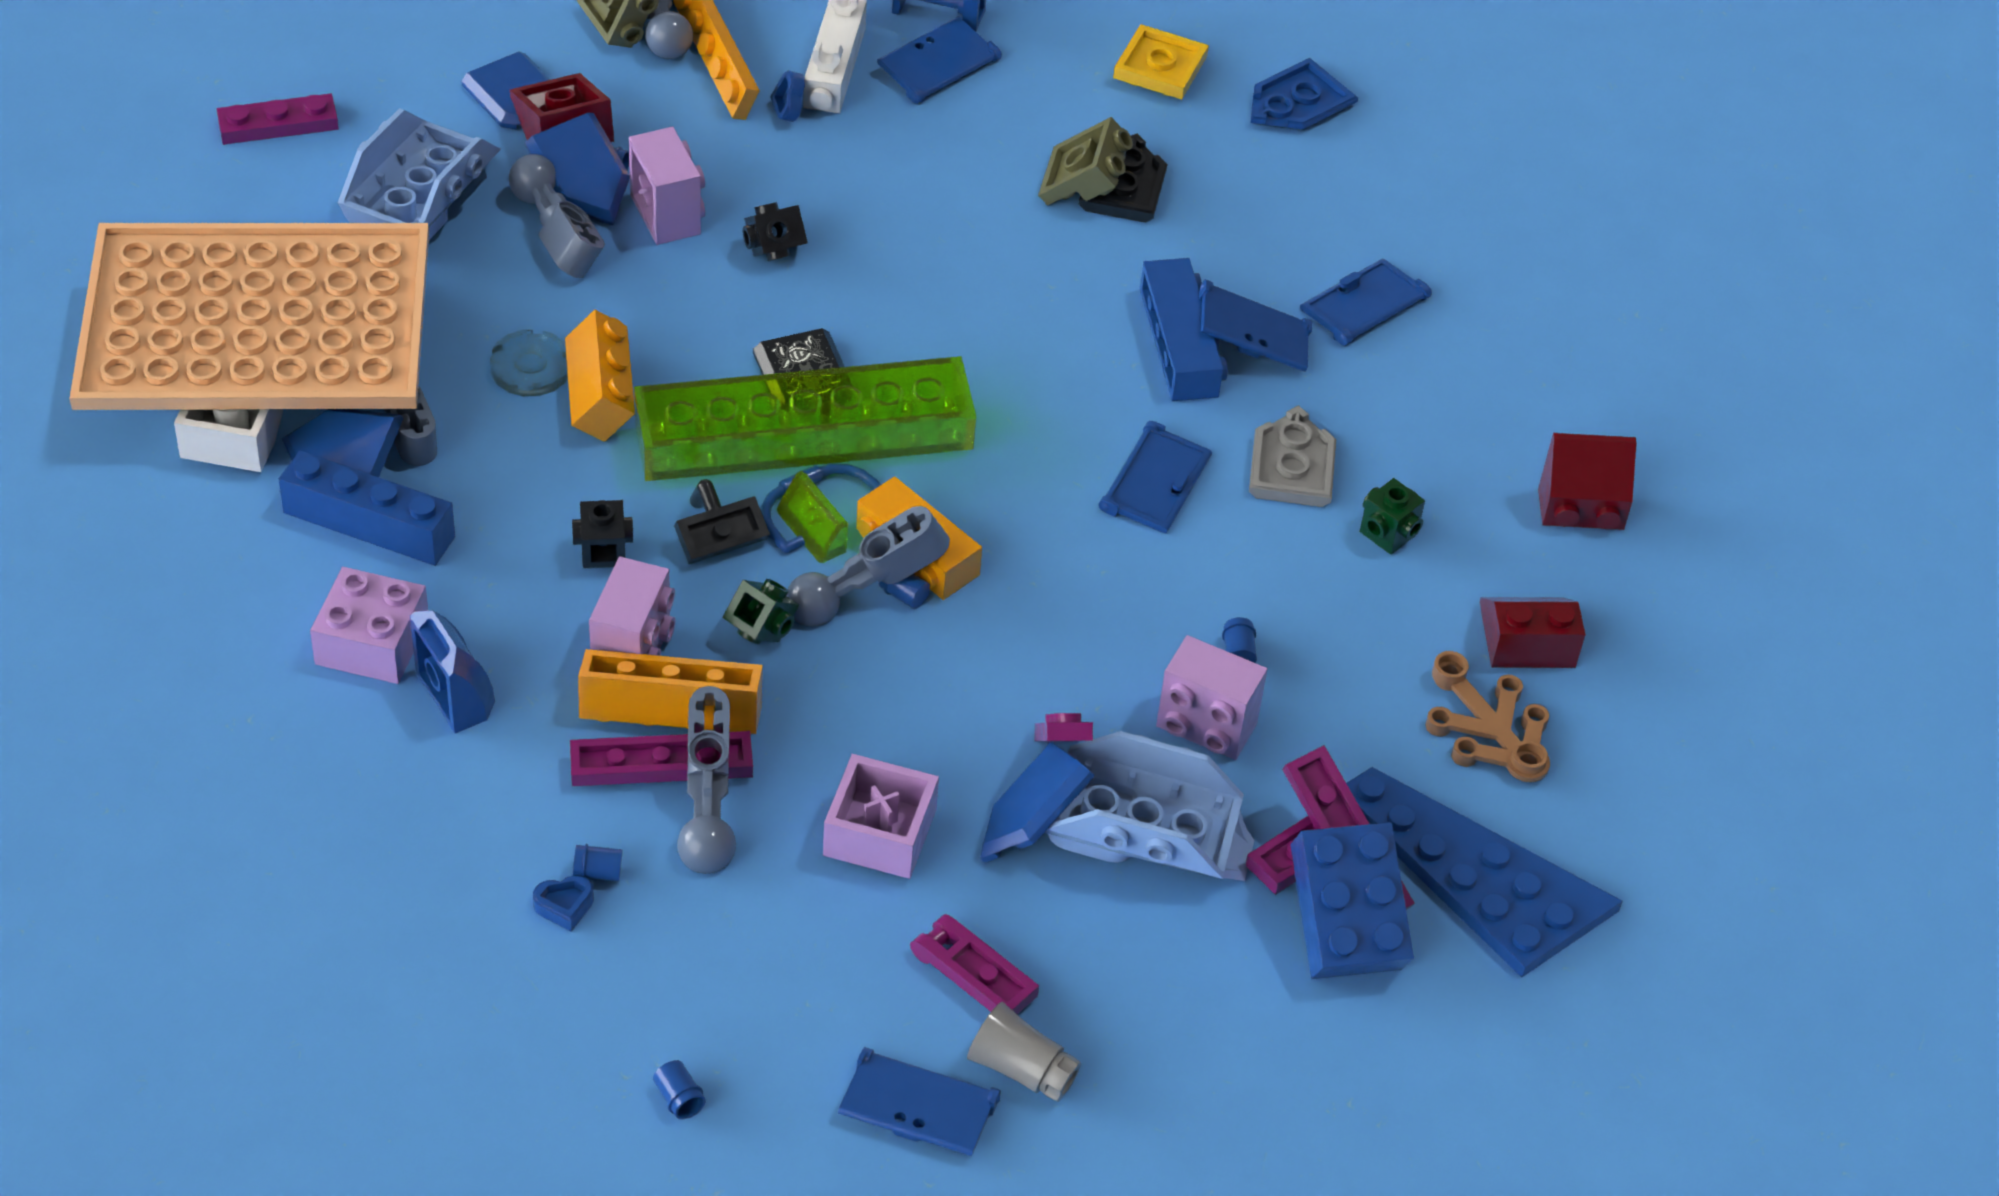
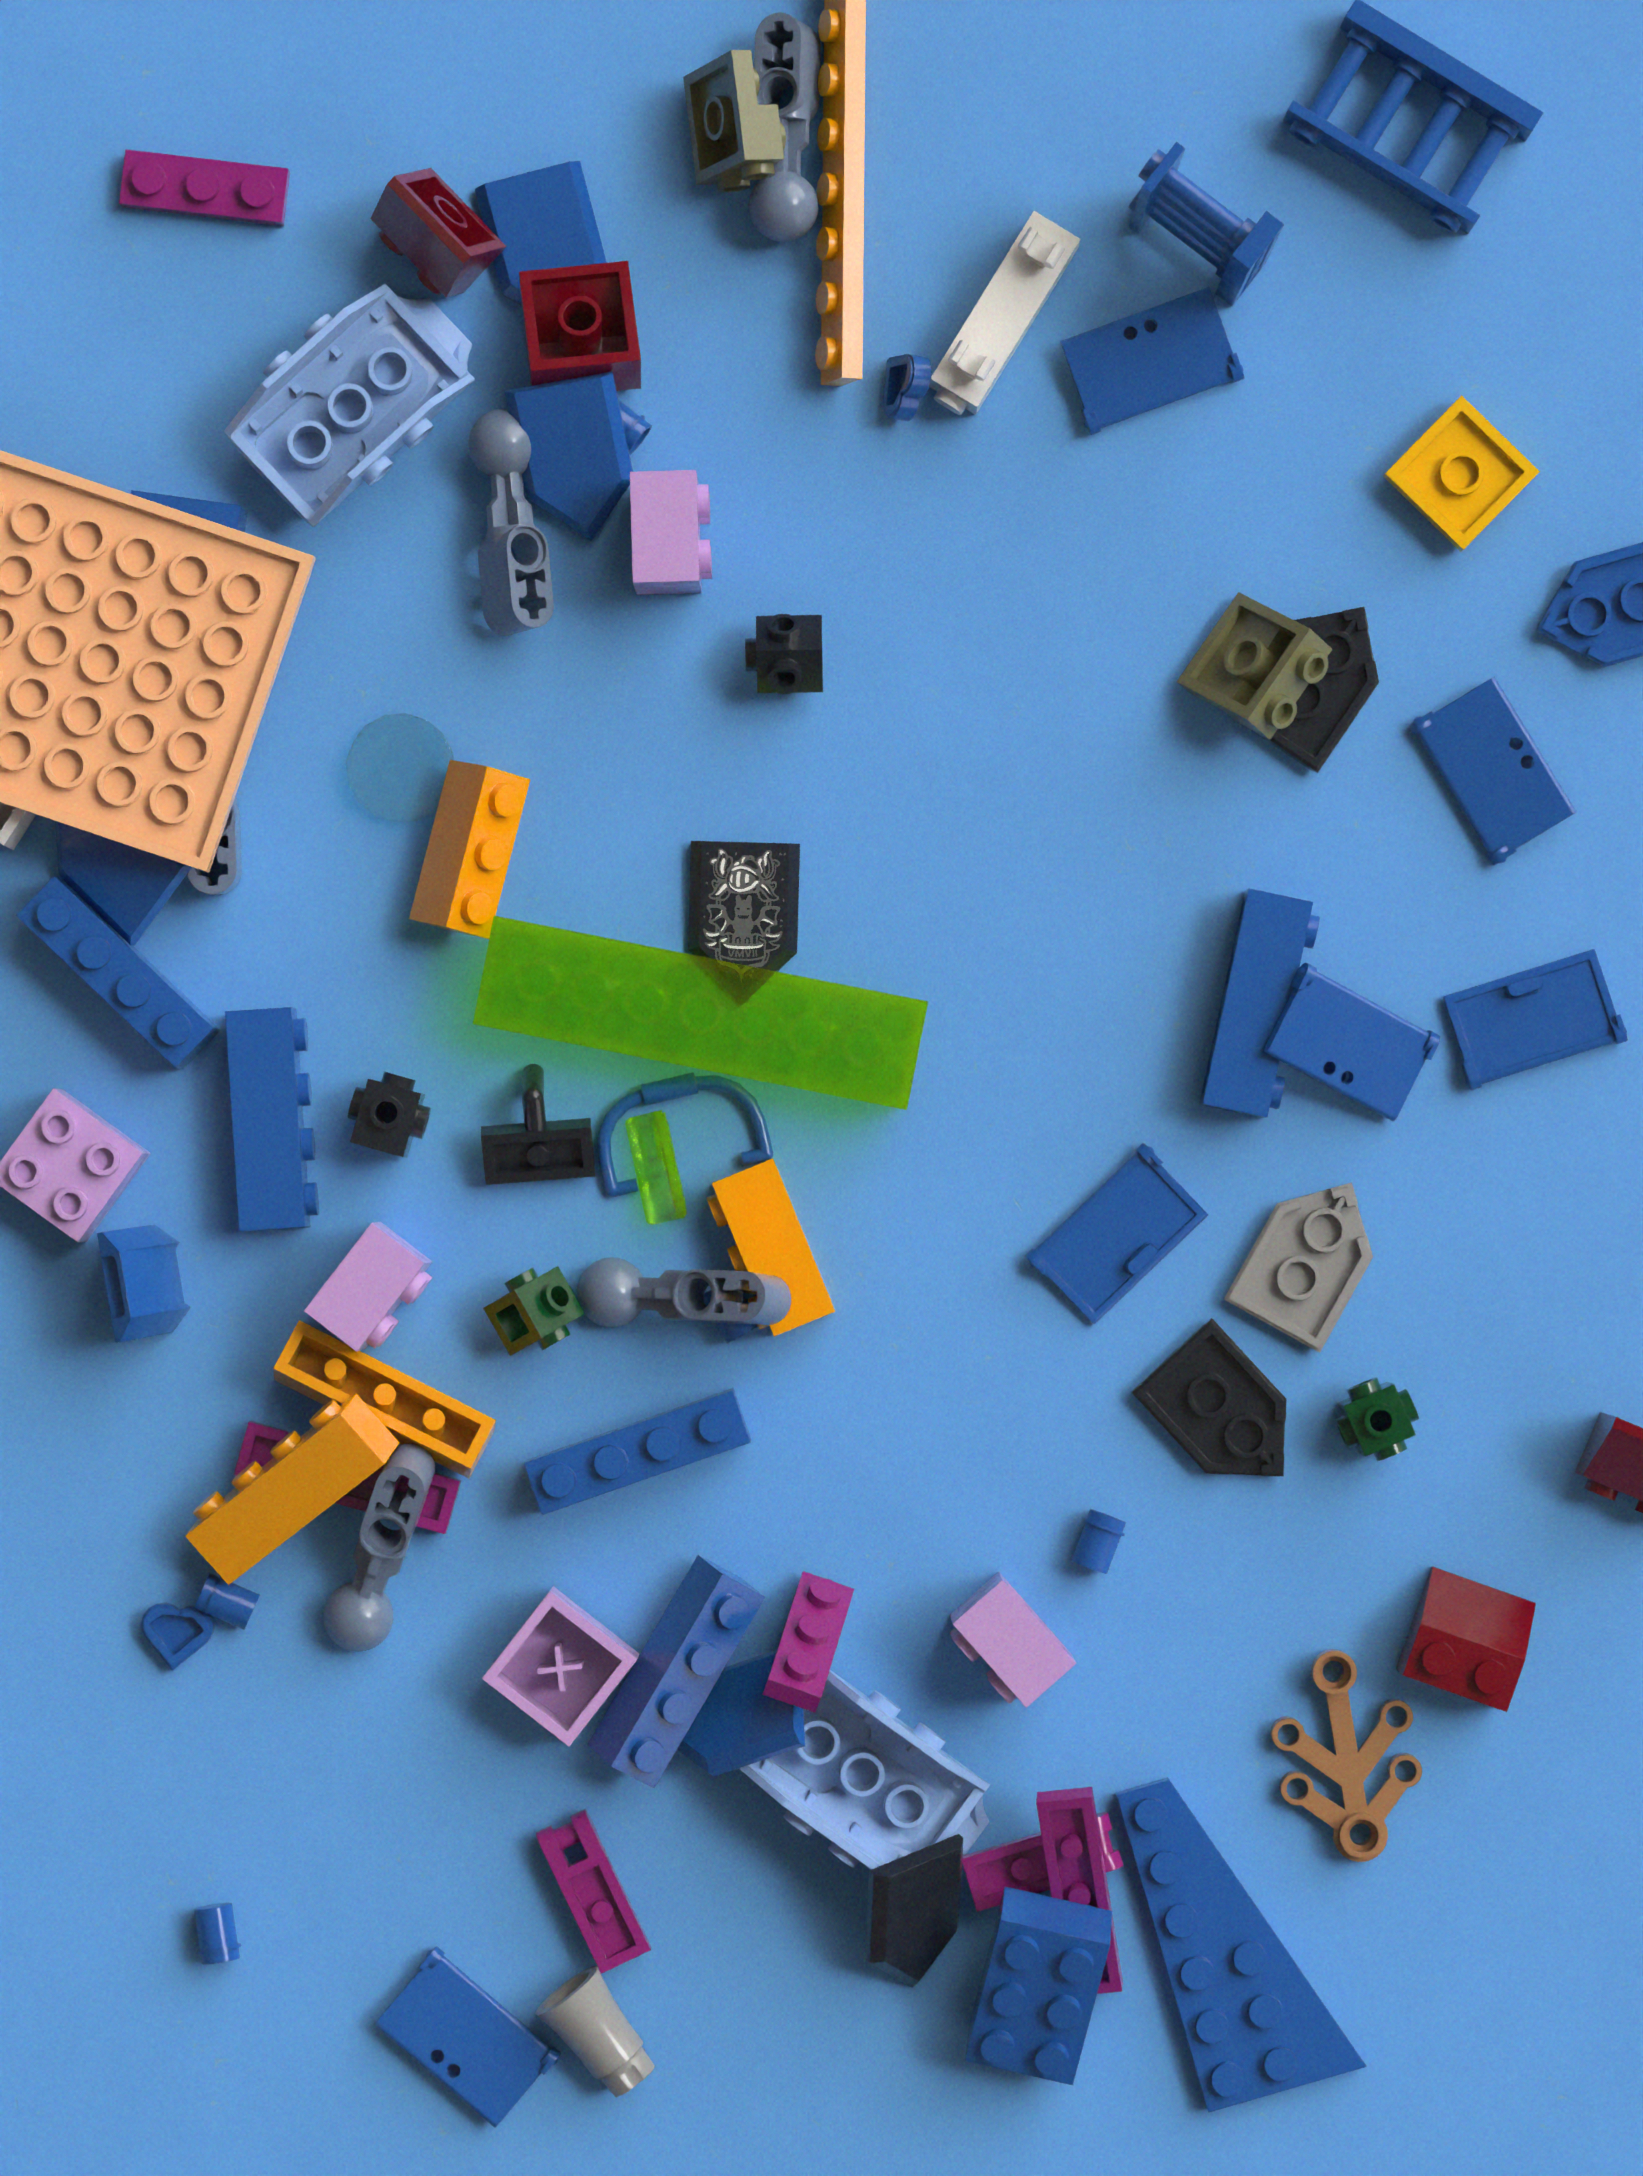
camera: 25 degrees right, 40 degrees up
(444, 84) = (435, 231): none -> slope
(514, 564) = (269, 1119): none -> blue brick
(621, 750) = (291, 1488): none -> light orange brick
(876, 676) = (637, 1451): none -> blue brick
(970, 796) = (676, 1671): none -> blue brick
(1230, 886) = (914, 1909): none -> black tile
(1275, 196) = (1493, 770): none -> blue door
(1279, 548) = (1218, 1406): none -> black tile

